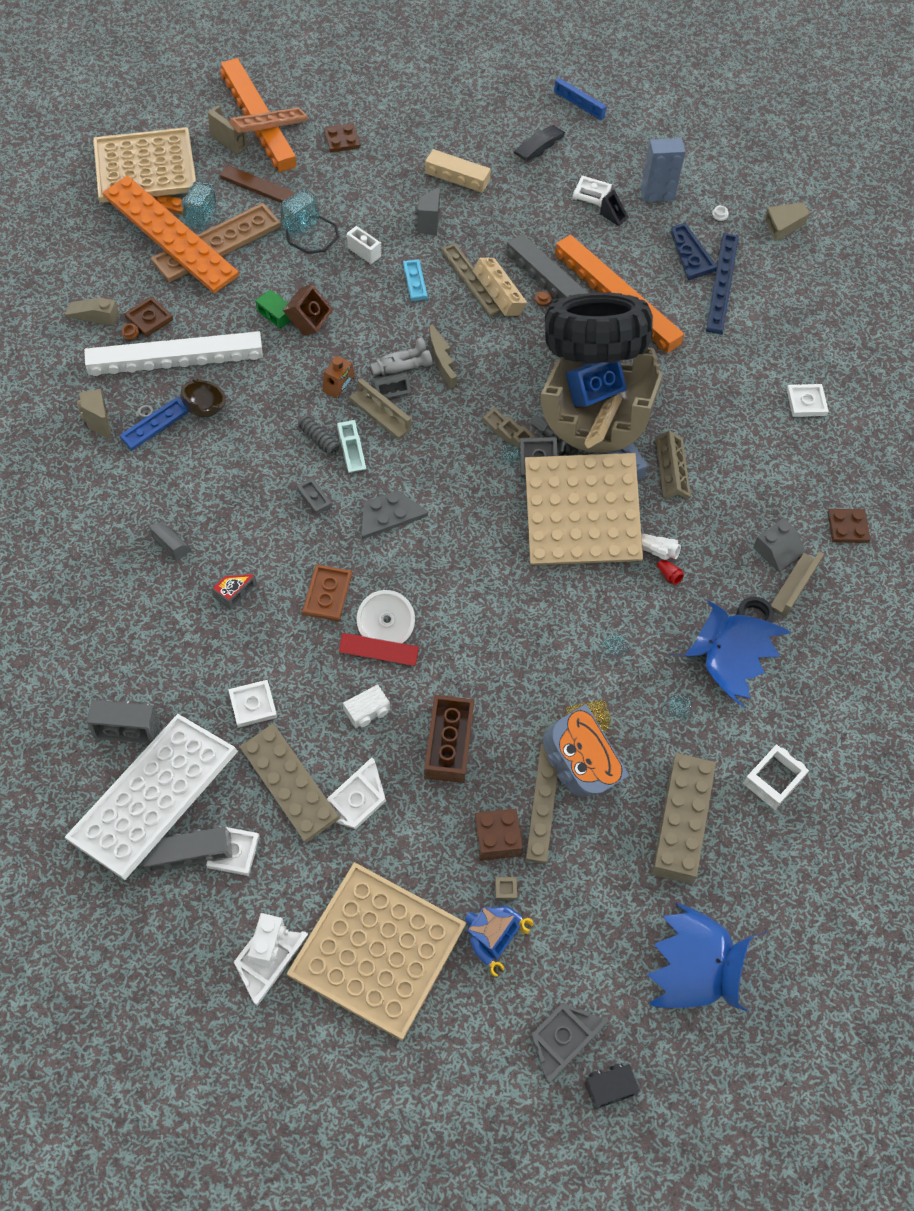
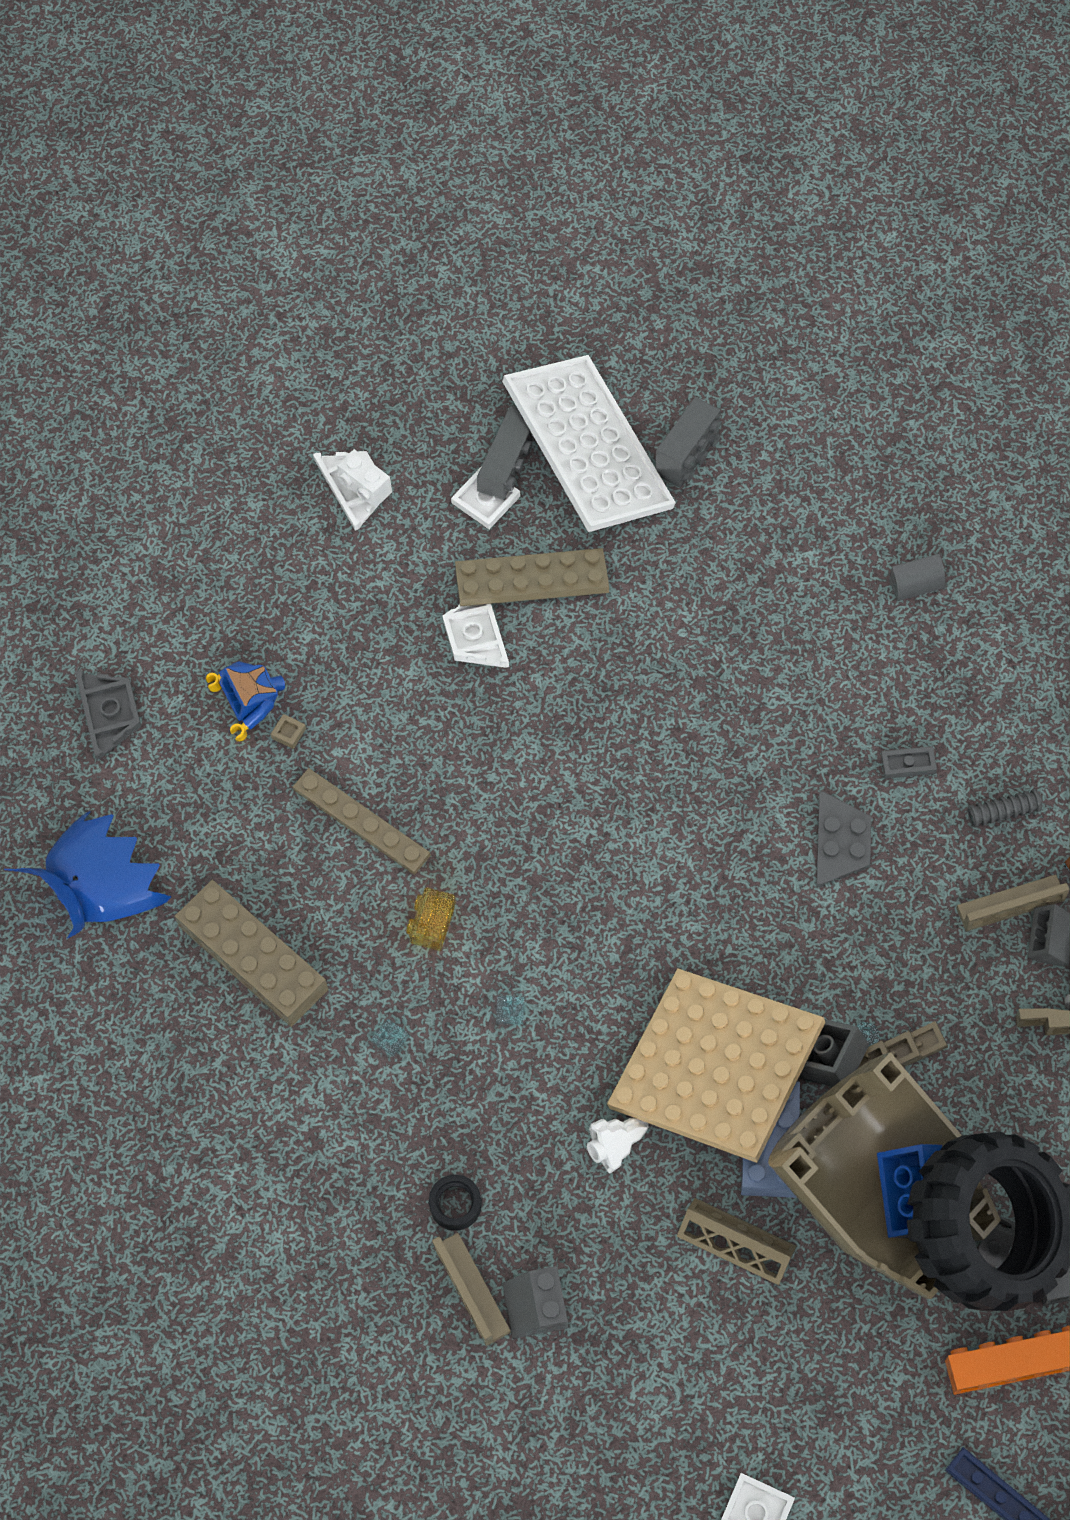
camera: 125 degrees right, 5 degrees up
(233, 588) = (811, 615): slope -> none
(252, 703) = (649, 581): white plate -> none
(327, 592) = (758, 720): dark orange tile -> none
(351, 446) = (967, 839): light aqua slope -> none
(366, 706) = (579, 691): white brick -> none
(377, 950) = (301, 583): tan plate -> none
(378, 605) = (679, 755): white dish -> none
(379, 649) = (648, 738): red tile -> none
(449, 739) = (488, 752): reddish brown brick -> none
(498, 834) = (349, 749): reddish brown brick -> none
(582, 754) = (378, 870): brick -> none
(603, 421) = (833, 1151): tan tile -> none
(611, 1085) = (35, 725): black brick -> none
(671, 572) = (572, 1134): red cone -> none
(741, 644) = (405, 1122): blue piece -> none
(765, 791) = (228, 1063): white window -> none
(848, 525) = (520, 1428): reddish brown plate -> none

